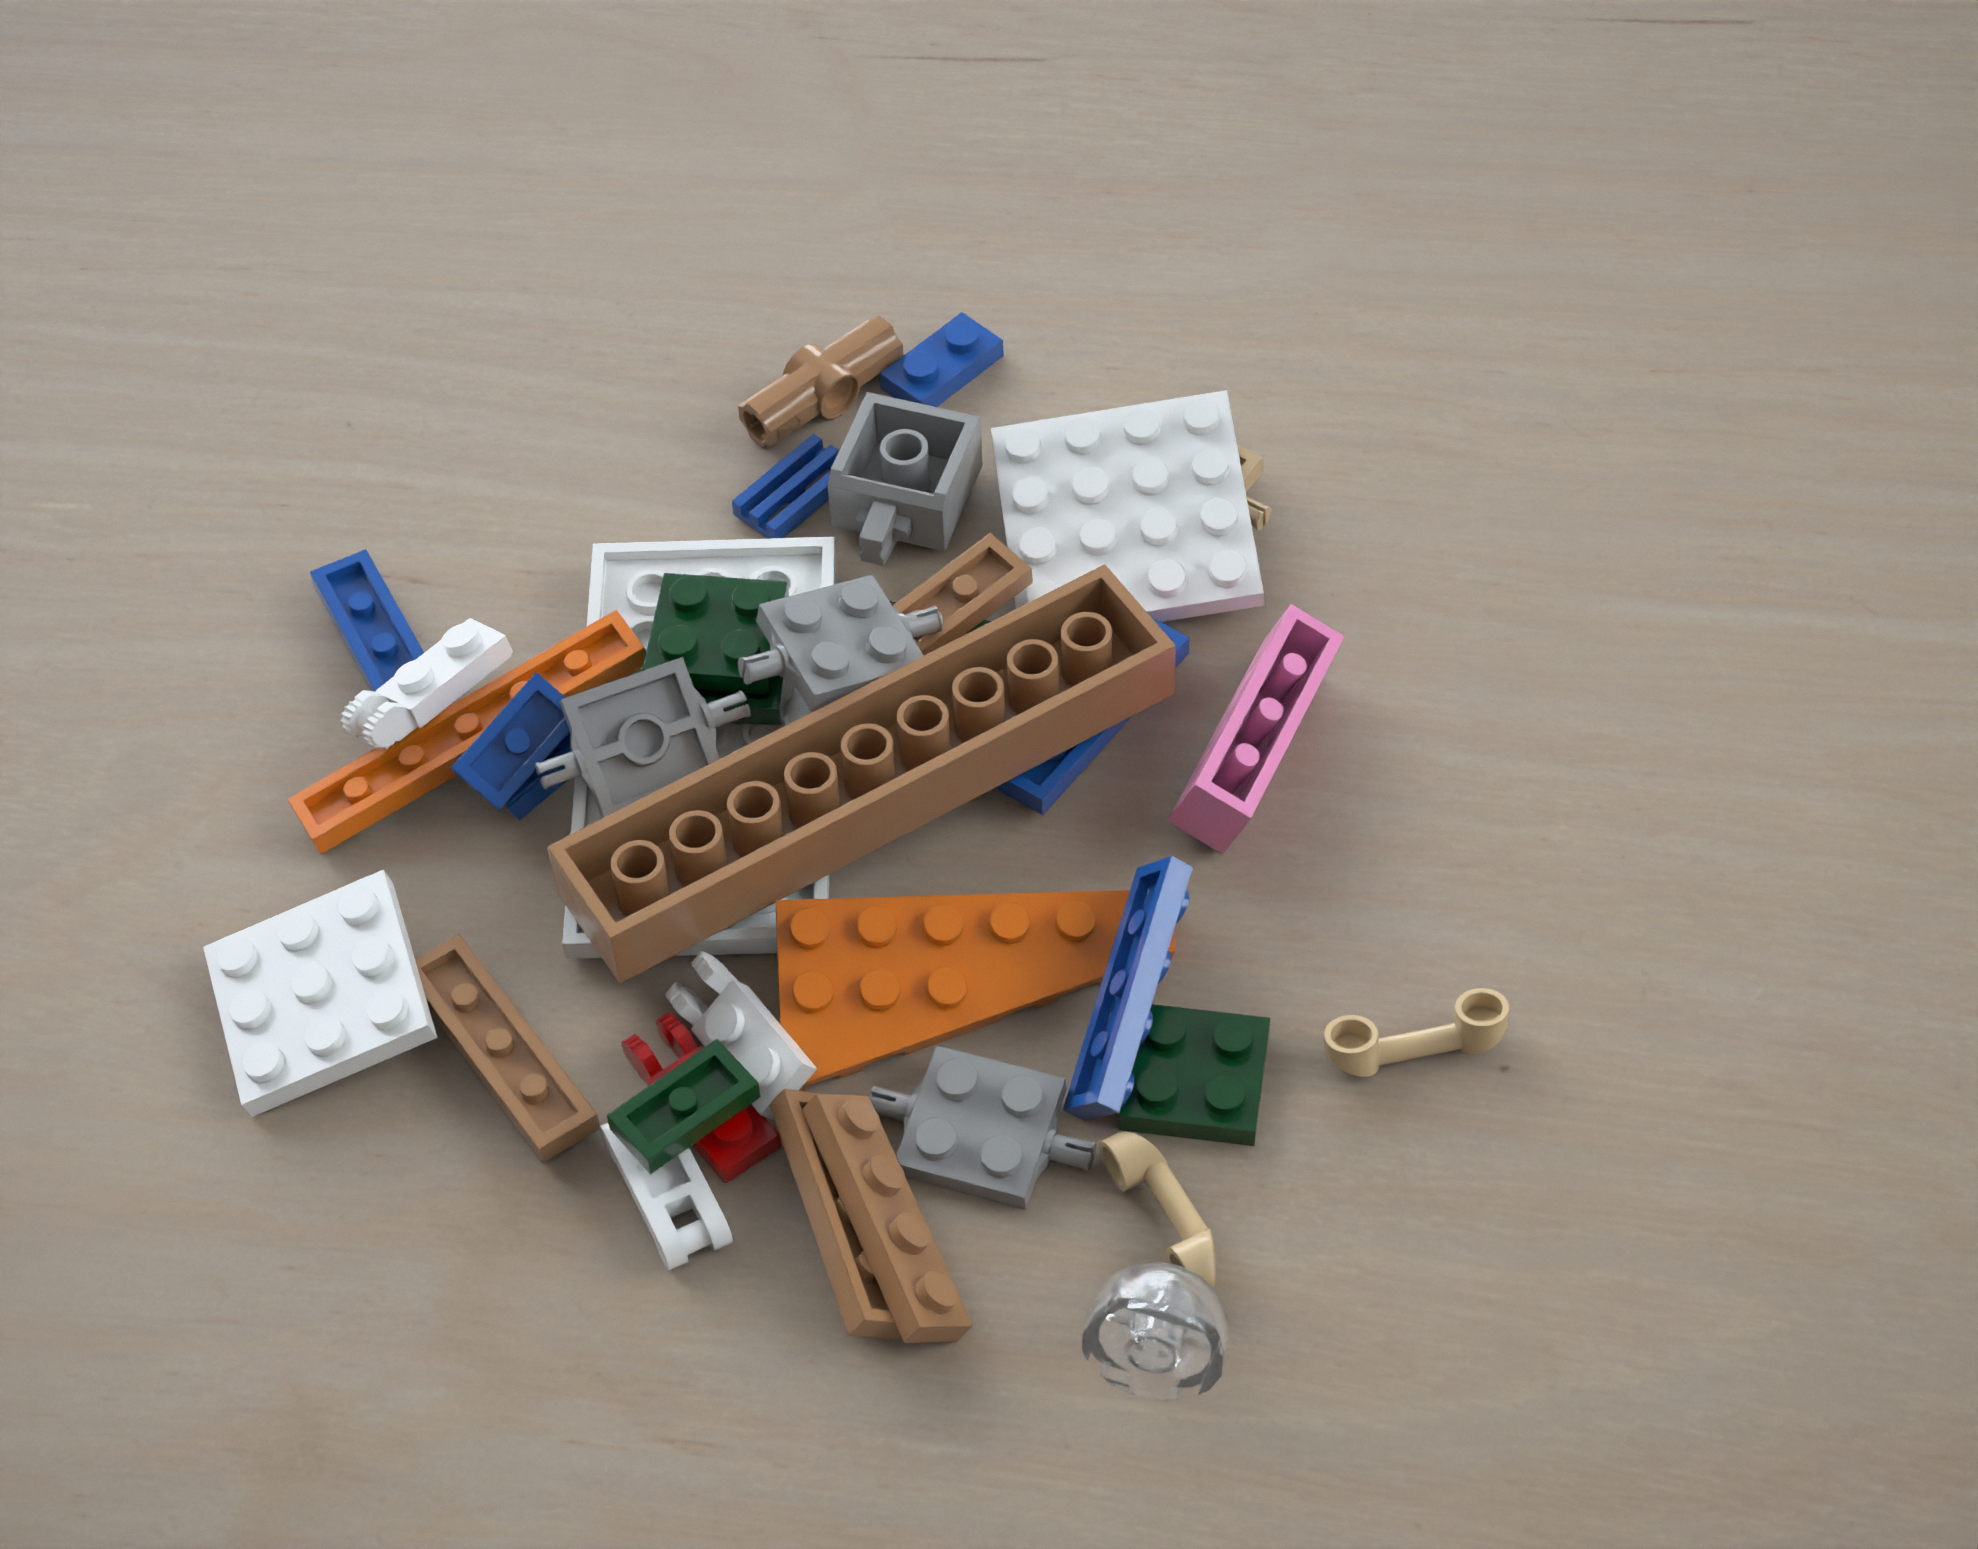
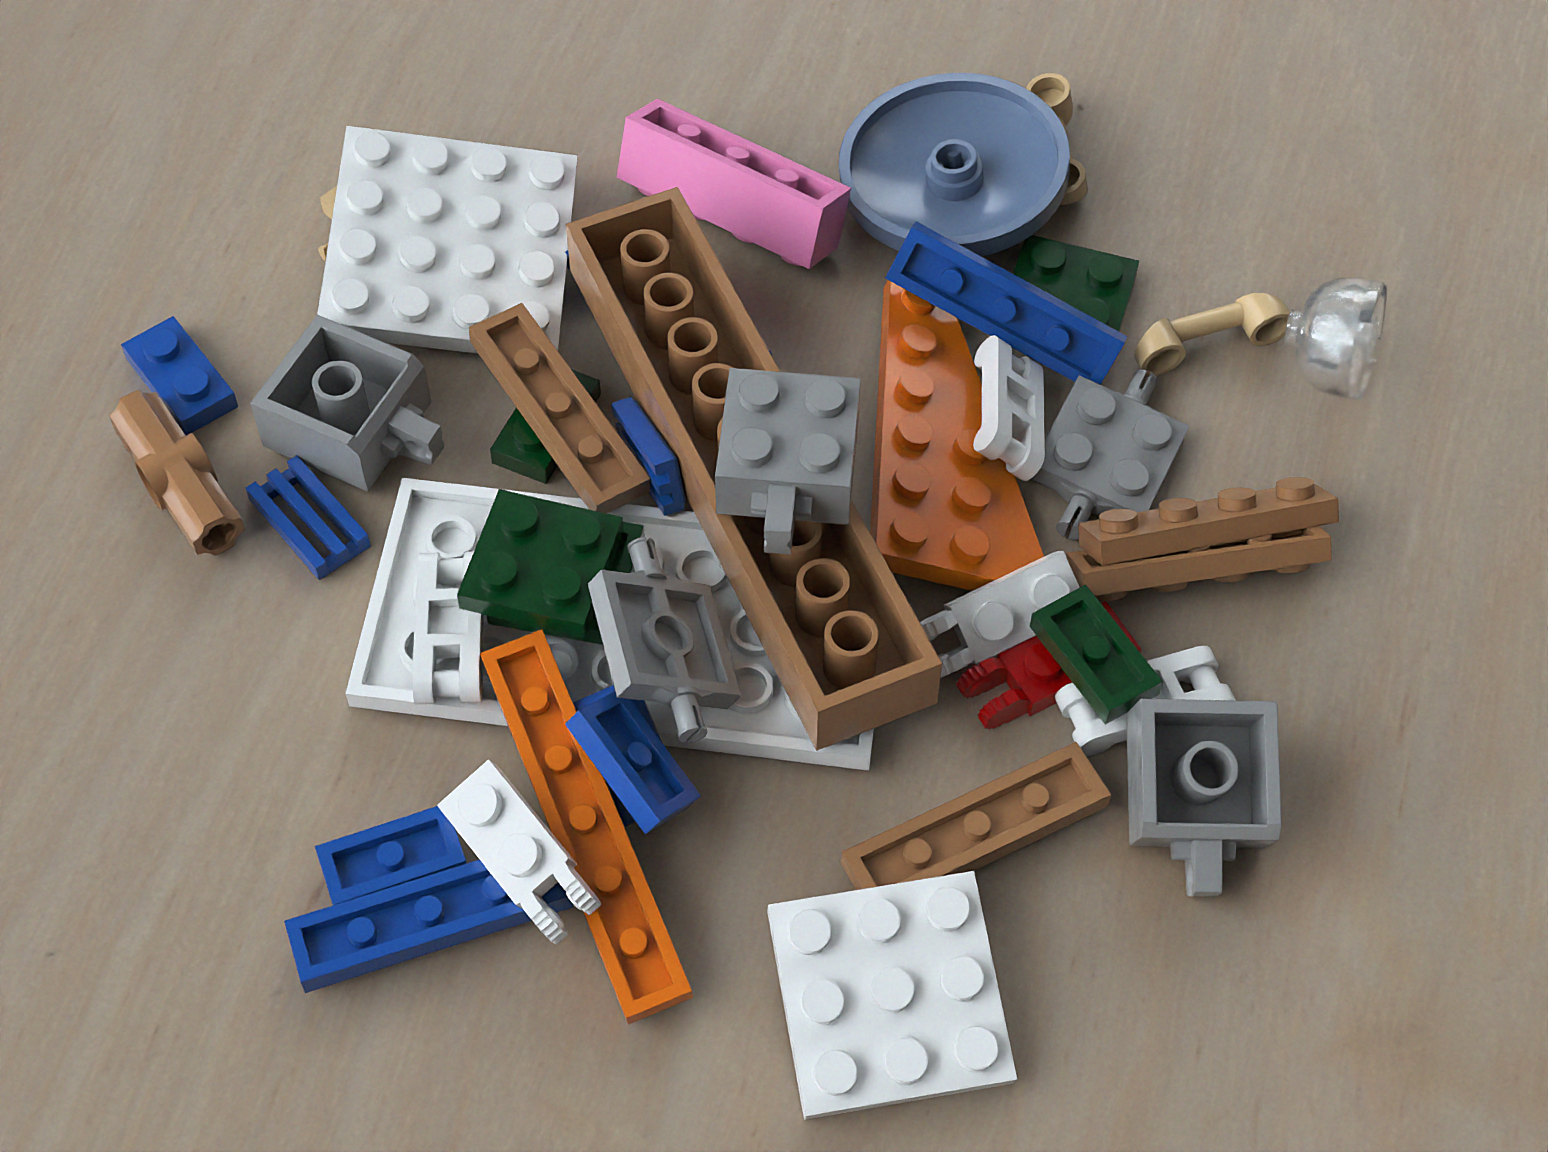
camera: 85 degrees left, 5 degrees up
(429, 600) = (389, 855): none -> blue plate
(546, 1213) = (1203, 782): none -> light grey hinge
(643, 584) = (445, 632): none -> white plate
(808, 763) = (787, 450): none -> light grey hinge
(836, 639) = (600, 447): light grey plate -> none
(1001, 1012) = (1011, 409): none -> white plate
(1334, 925) = (958, 157): none -> sand blue dish

